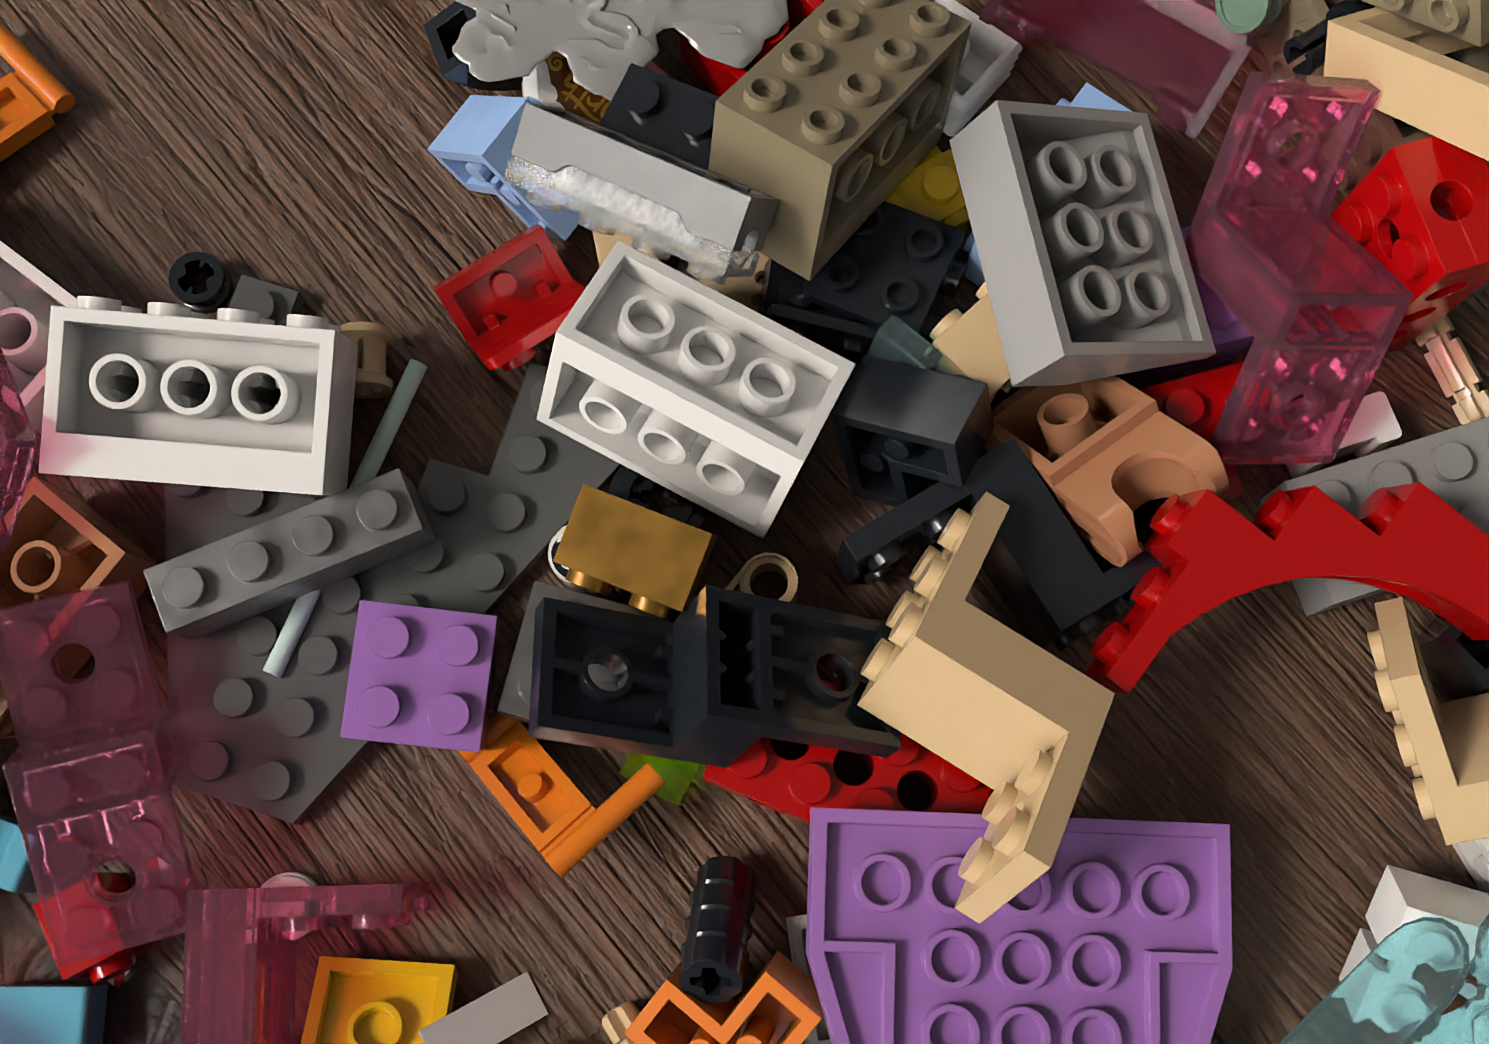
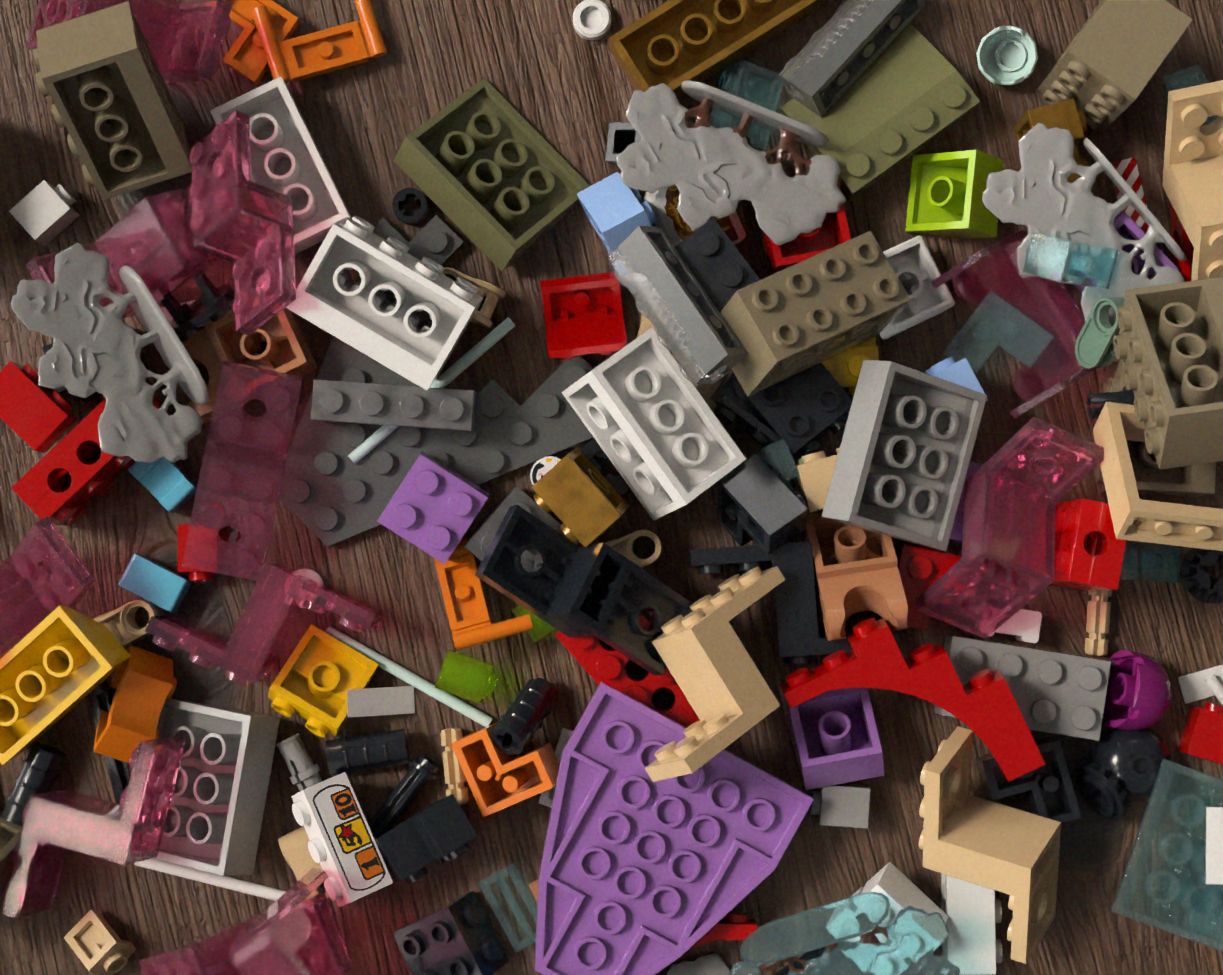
camera: 30 degrees right, 10 degrees up
(290, 185) = (490, 173): none -> olive slope
(522, 961) = (413, 679): none -> light aqua axle
(599, 914) = (466, 676): none -> clear neon green brick
(1106, 51) = (995, 326): none -> clear light blue tile
(1206, 717) = (837, 738): none -> medium lavender brick
(1265, 816) = (841, 805): none -> light grey brick

